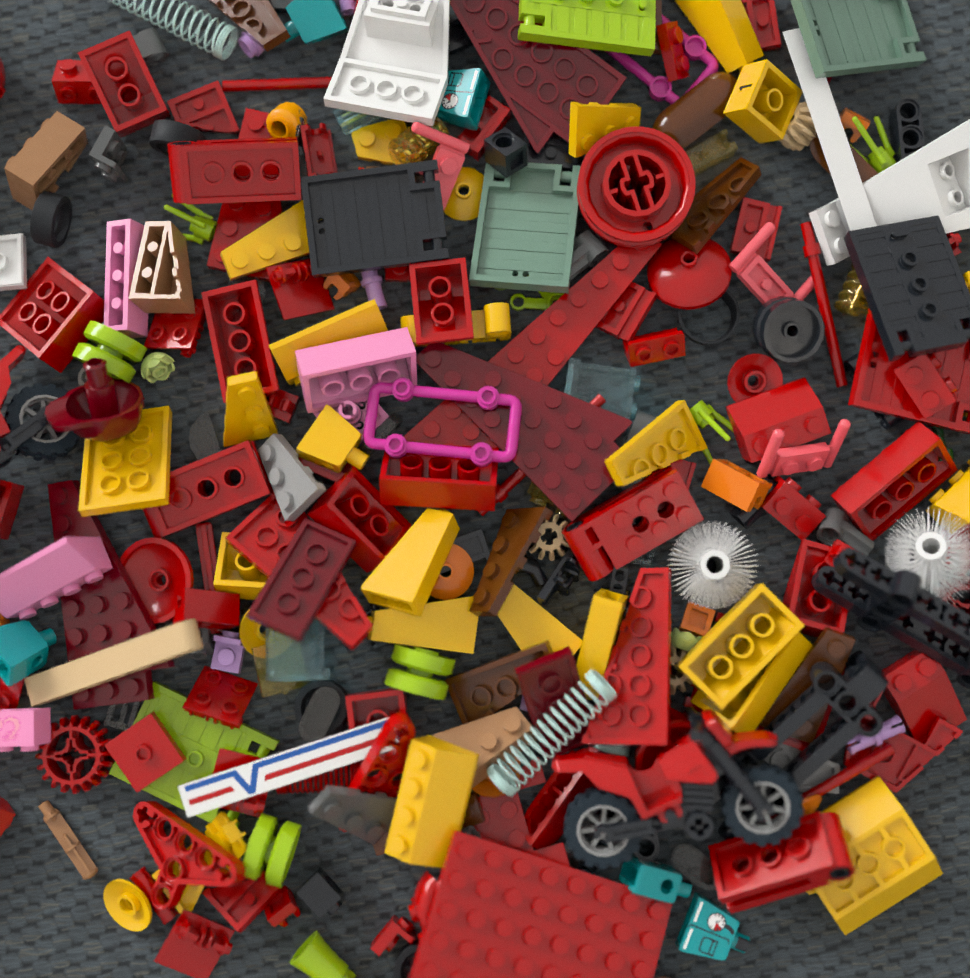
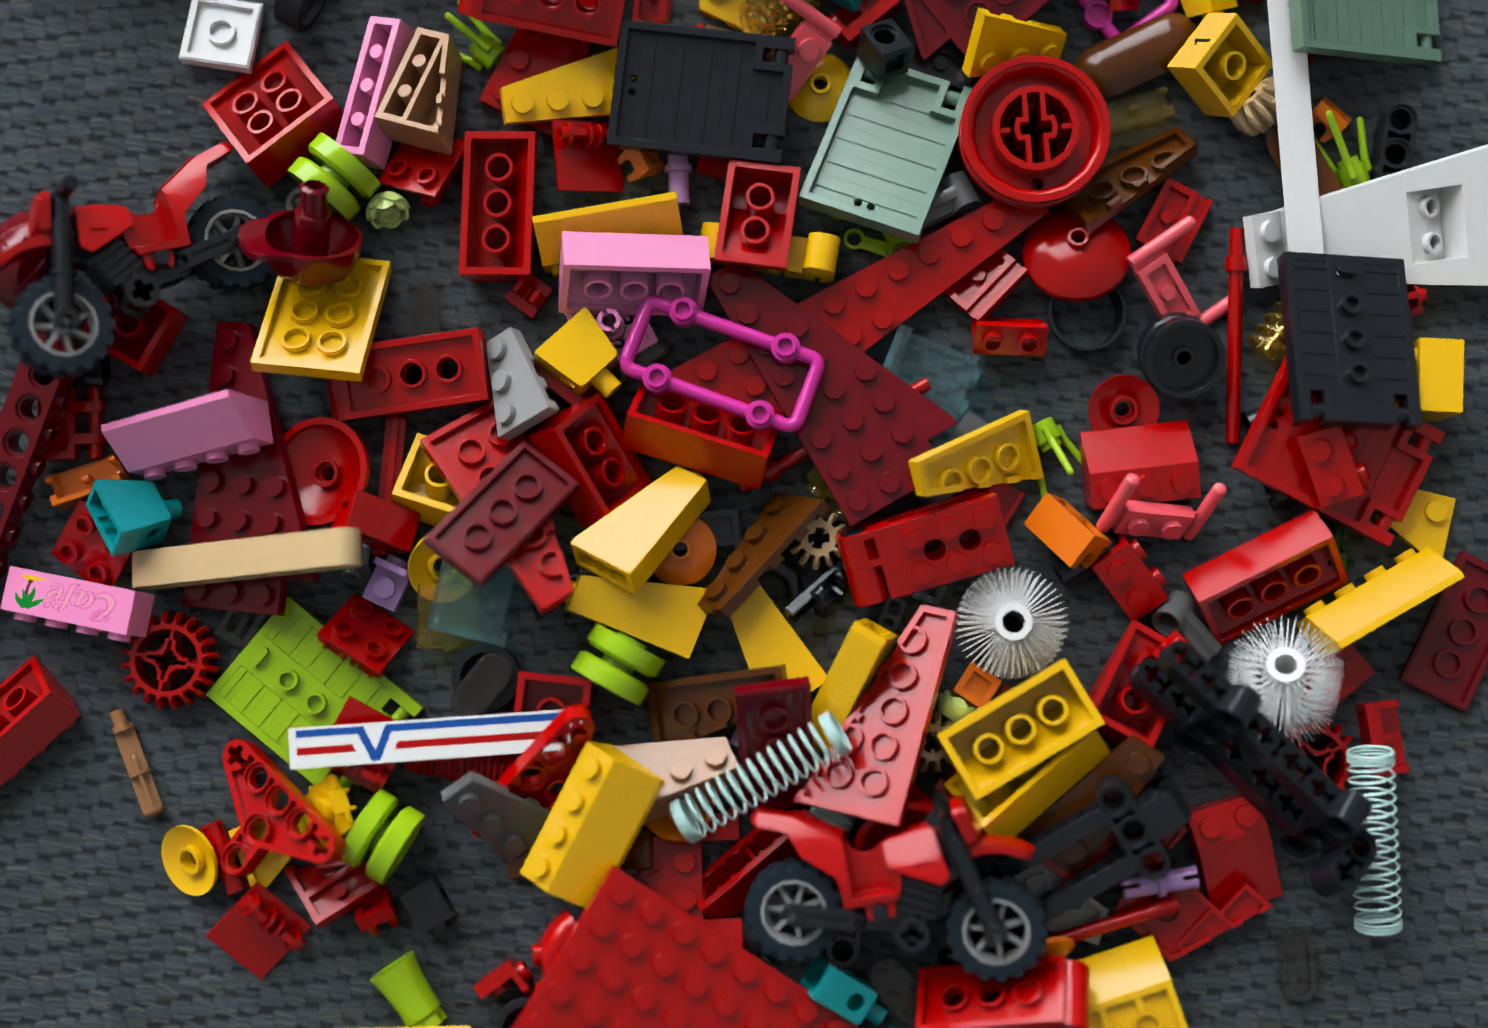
camera: 15 degrees right, 0 degrees up
(145, 751) = (257, 678): red plate -> none
(247, 411) = (485, 291): yellow wing -> none

